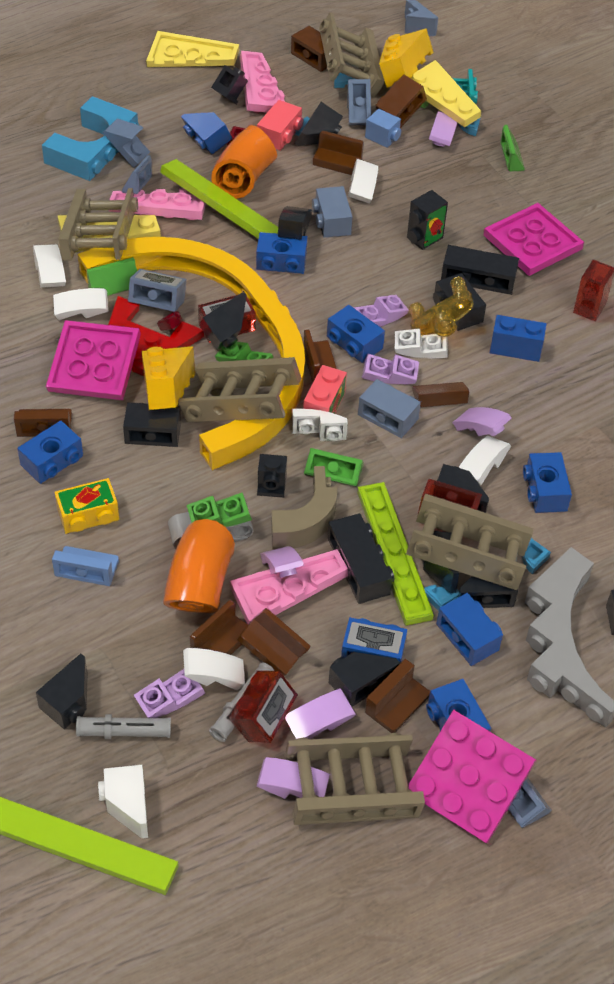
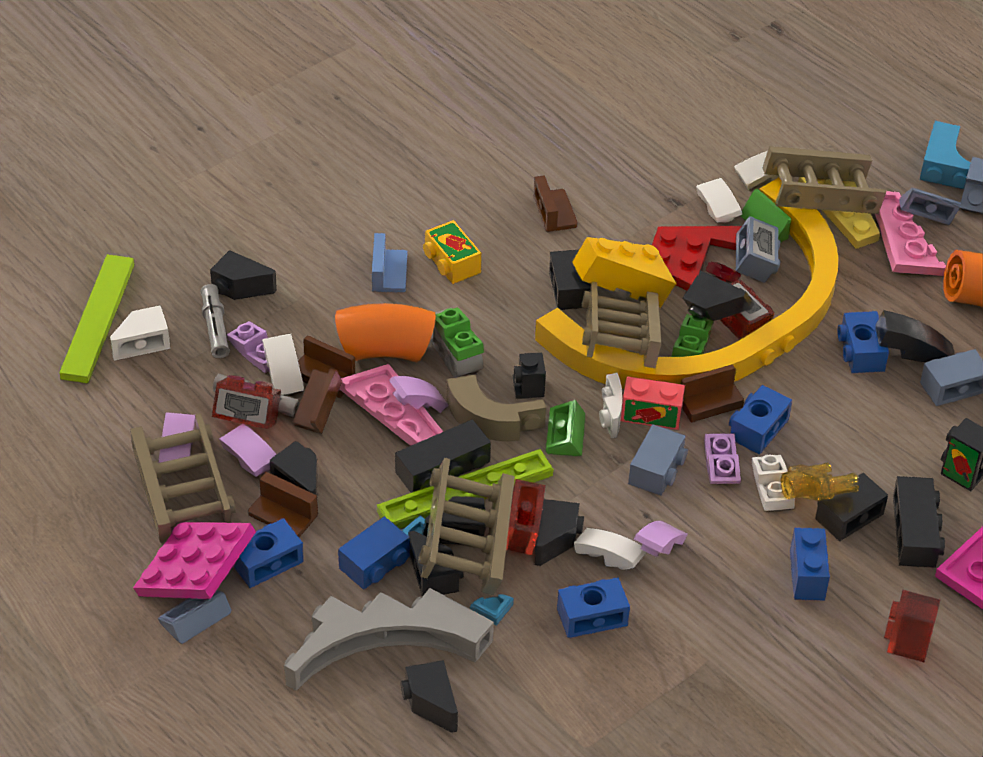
camera: 80 degrees right, 5 degrees down
(50, 452) = (511, 215): blue brick -> none
(93, 360) = (639, 216): dark pink plate -> none
(217, 198) = (928, 267): lime tile -> none
(374, 639) = (337, 480): brick -> none
(385, 310) = (807, 441): lavender slope -> none
(441, 394) = (701, 506): reddish brown slope -> none

